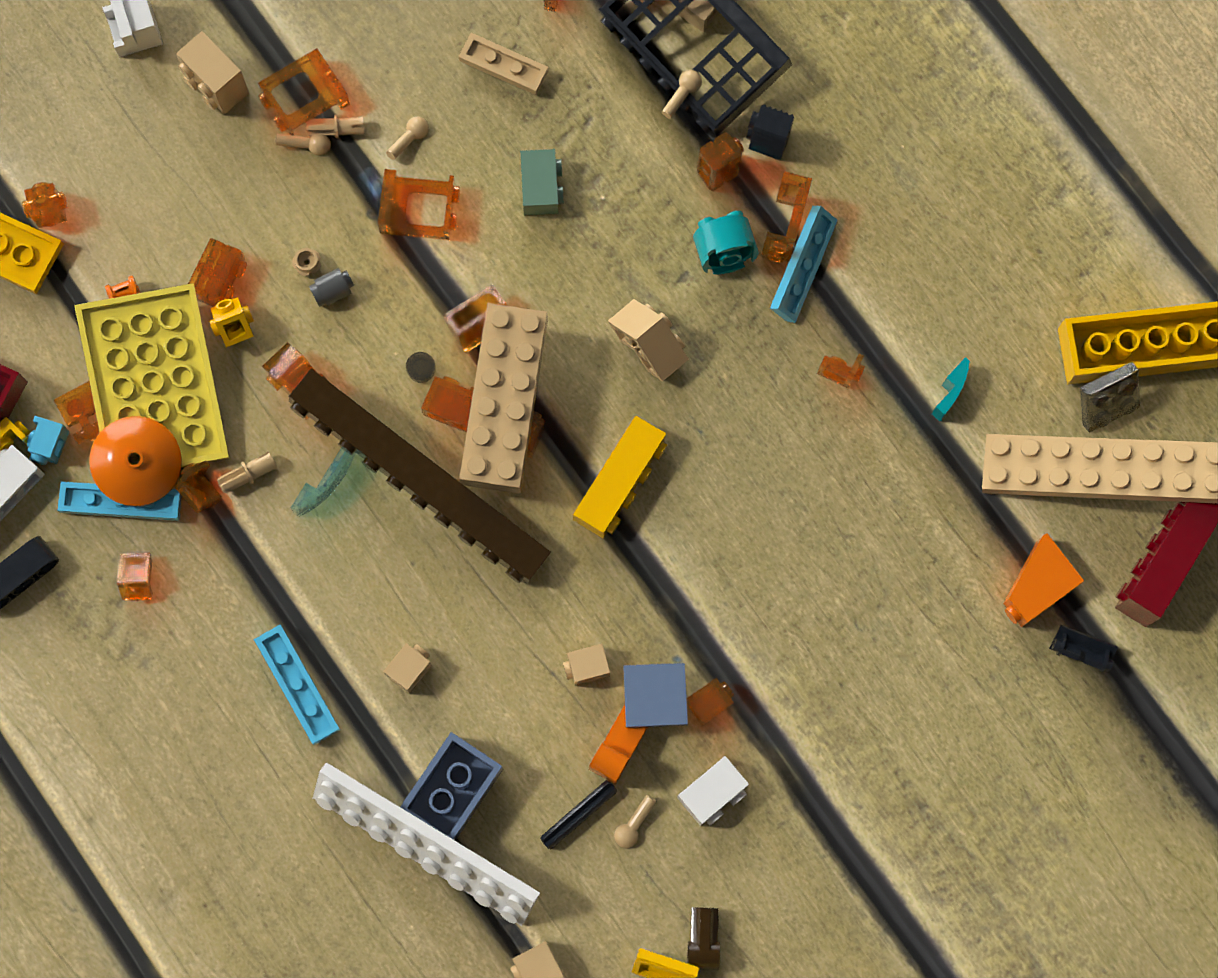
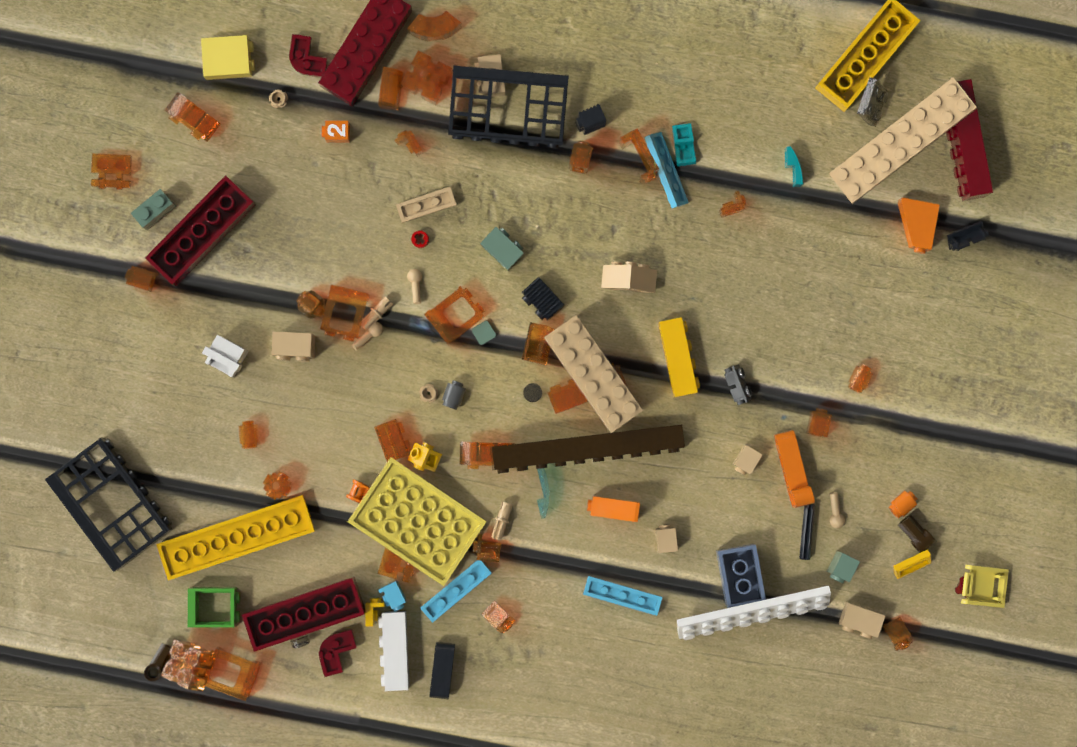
camera: 45 degrees left, 10 degrees up
(71, 125) = (248, 434): none -> clear orange brick
(138, 483) = (434, 561): orange dish -> none
(275, 51) = (311, 304): none -> clear orange head
(383, 575) = (613, 508): none -> orange slope
(431, 254) = (483, 332): none -> sand green piece
(469, 97) = (414, 240): none -> red bush
(531, 275) = (542, 299): none -> black brick
(578, 891) = (842, 567): none -> sand green brick
(655, 695) = (793, 445): sand blue tile -> none
(656, 584) = (742, 391): none -> dark grey hinge
(689, 82) = (529, 131): tan bar -> none
(713, 791) = (859, 463): white brick -> none
(721, 888) = (903, 504): none -> orange brick
(725, 243) = (621, 196): teal brick -> none
(807, 695) = (860, 378): none -> clear orange brick
(850, 256) = (684, 144): none -> teal slope

